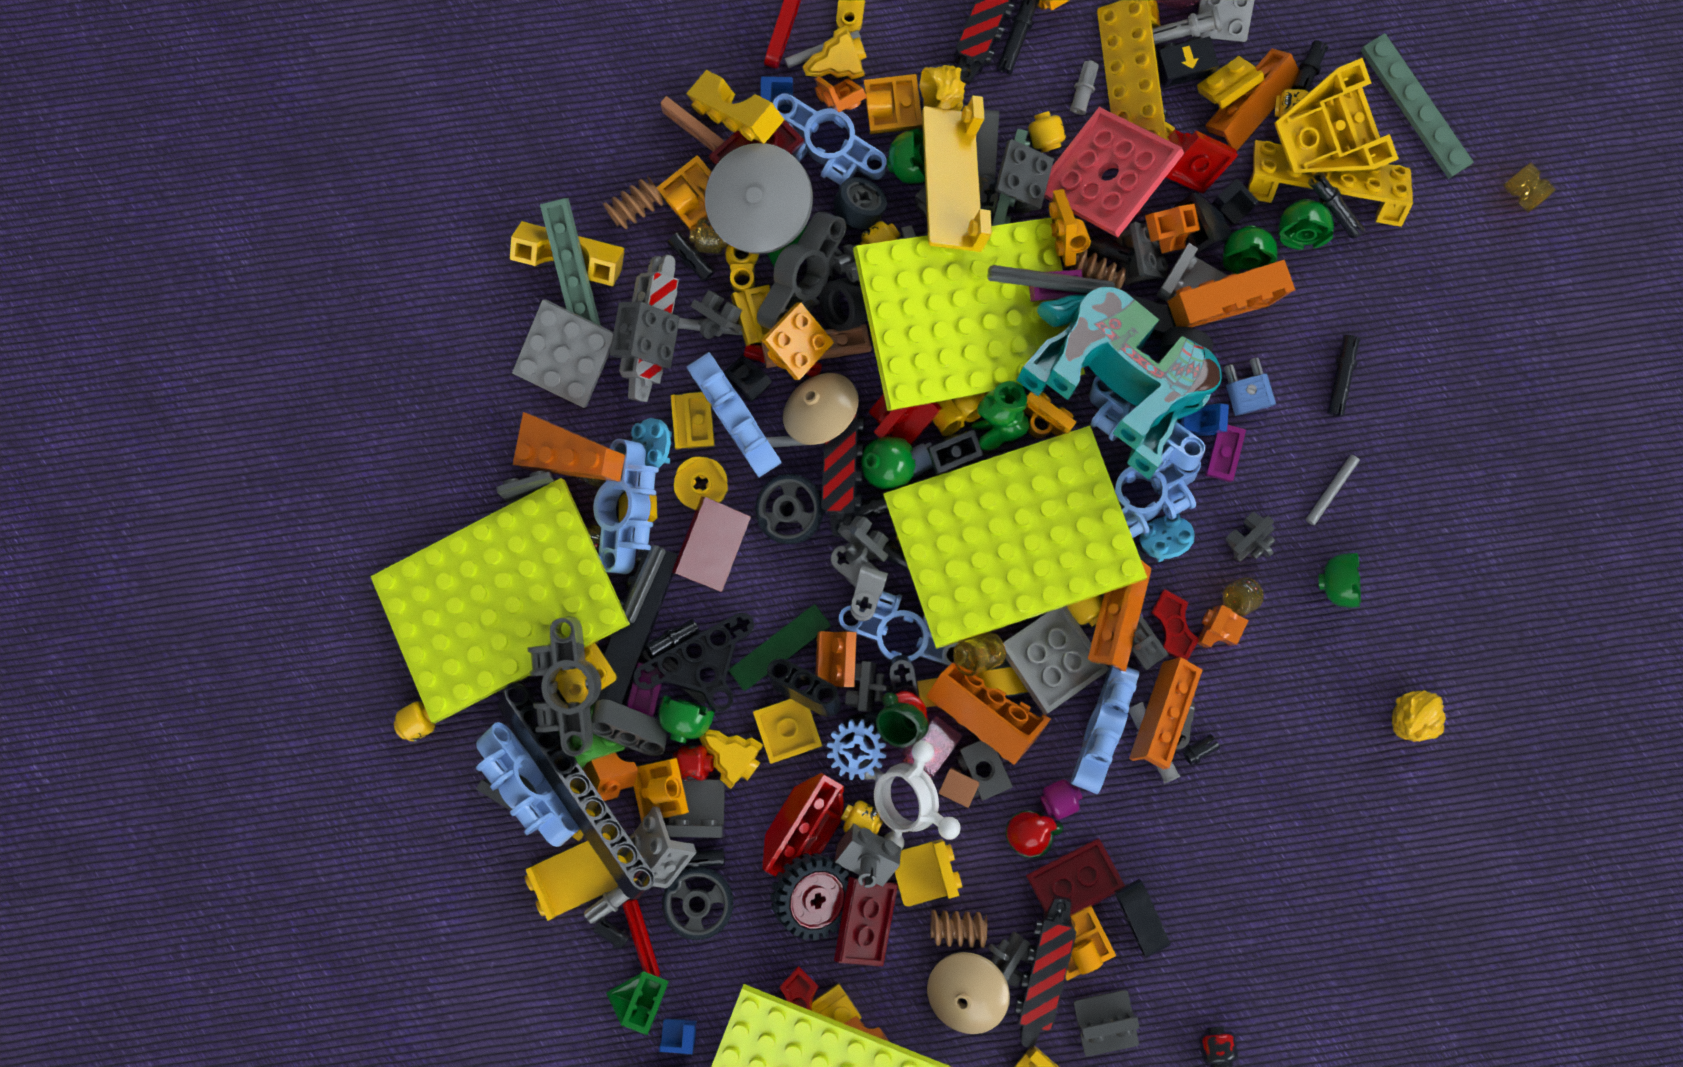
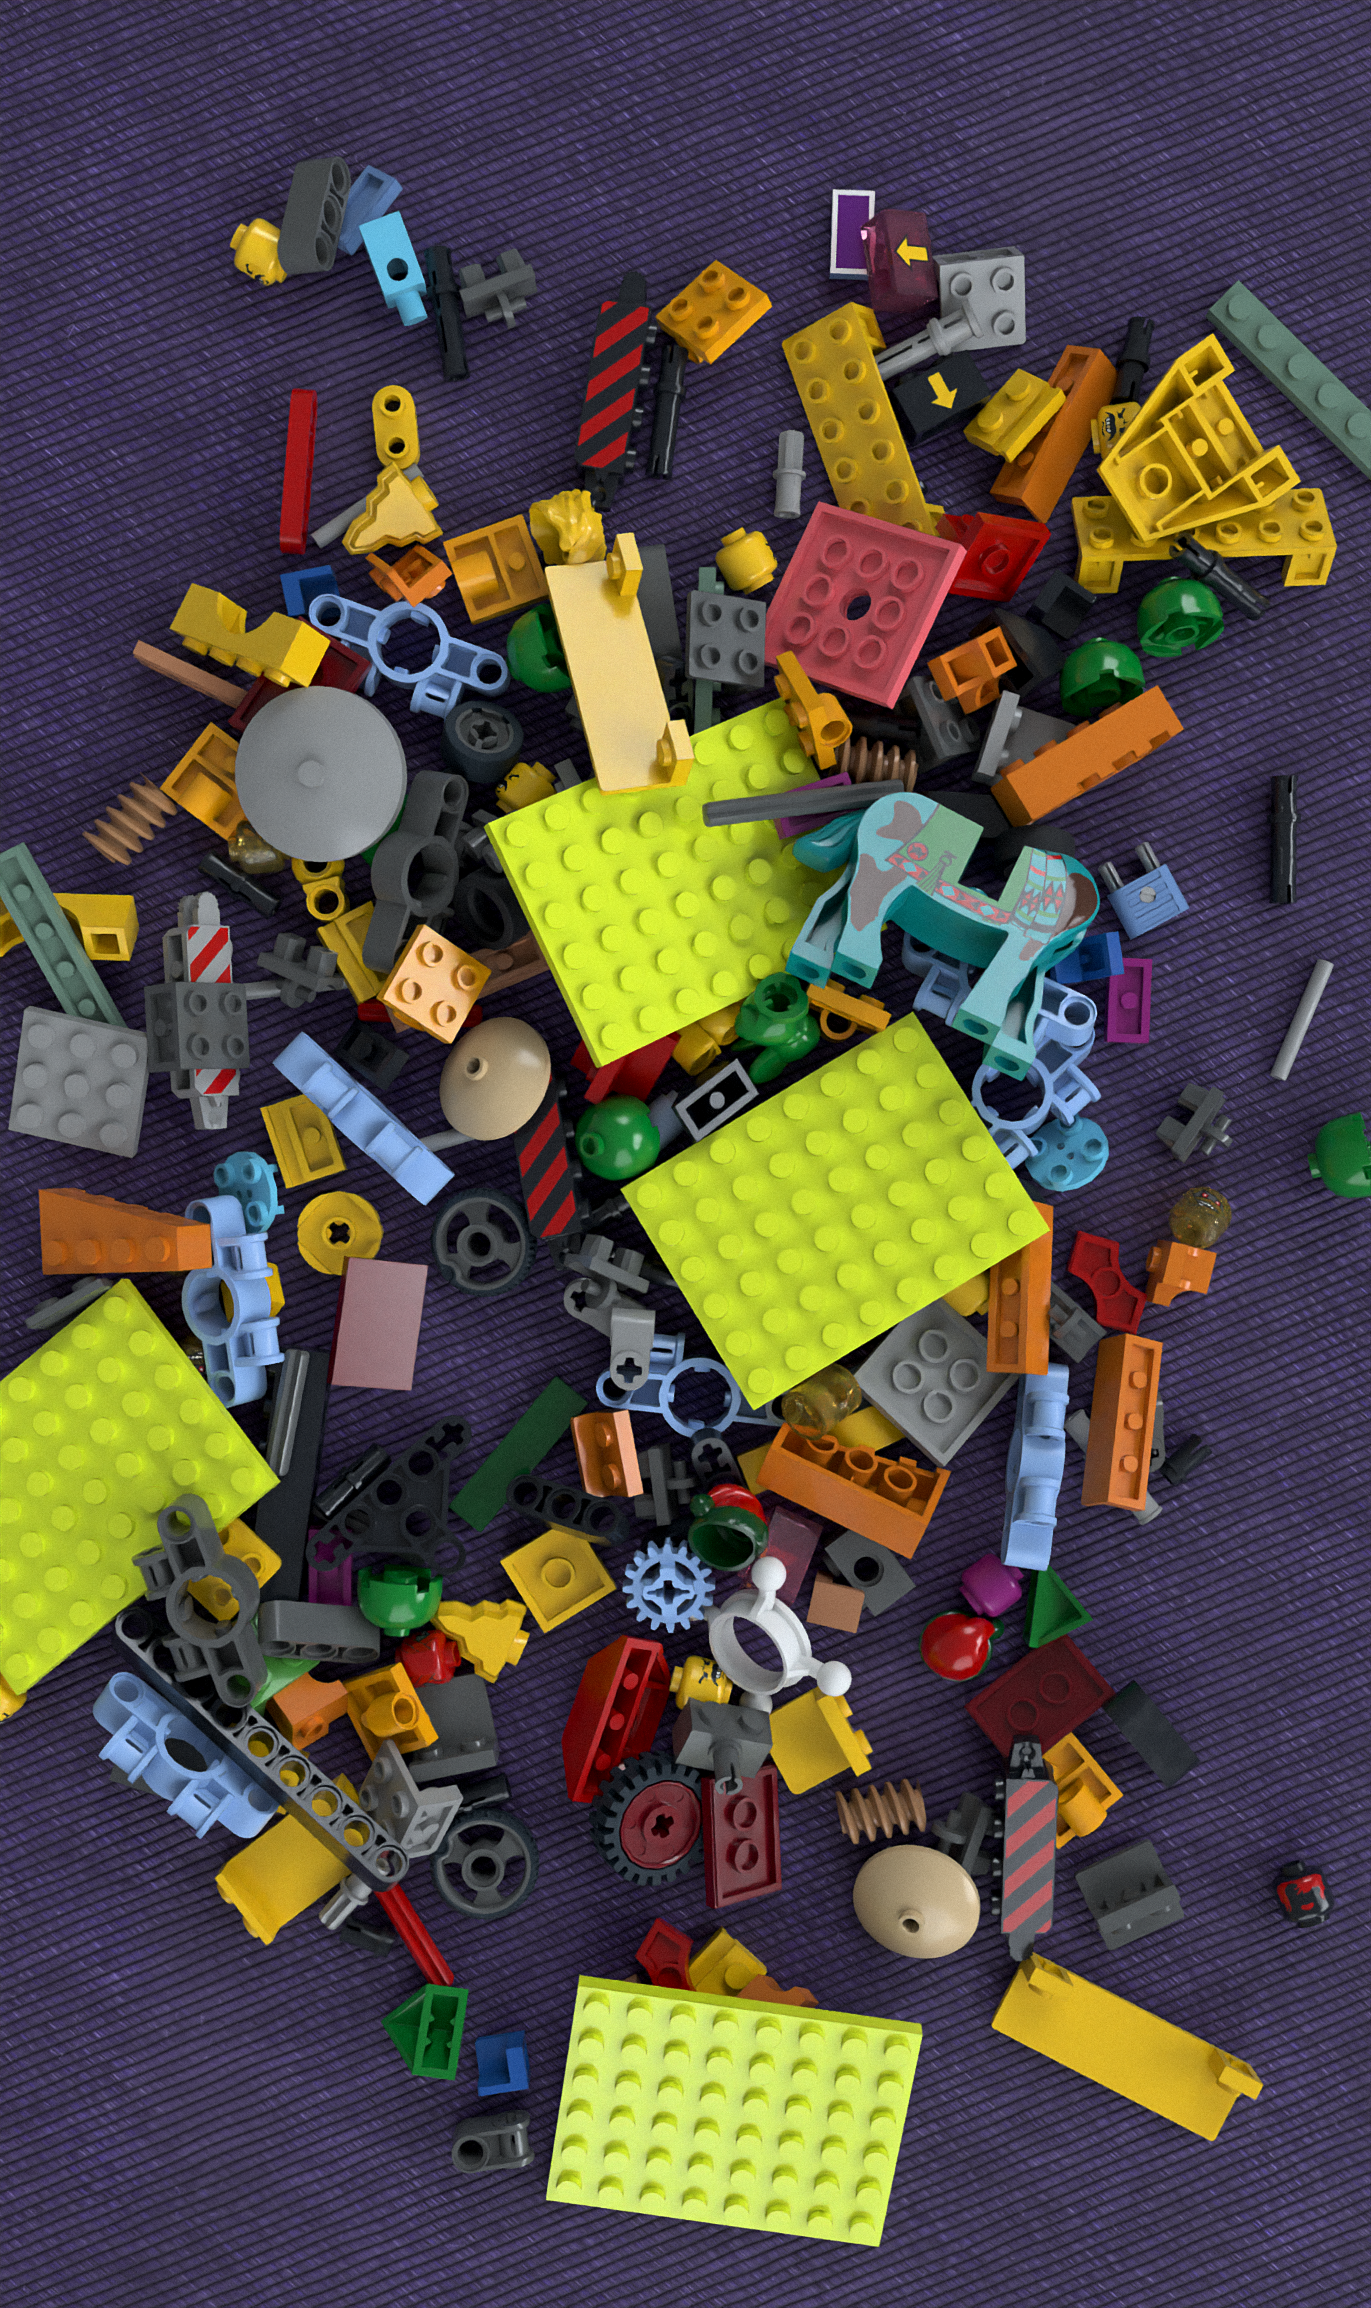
camera: 10 degrees left, 5 degrees up
(1095, 821) = (1050, 1609): none -> green slope

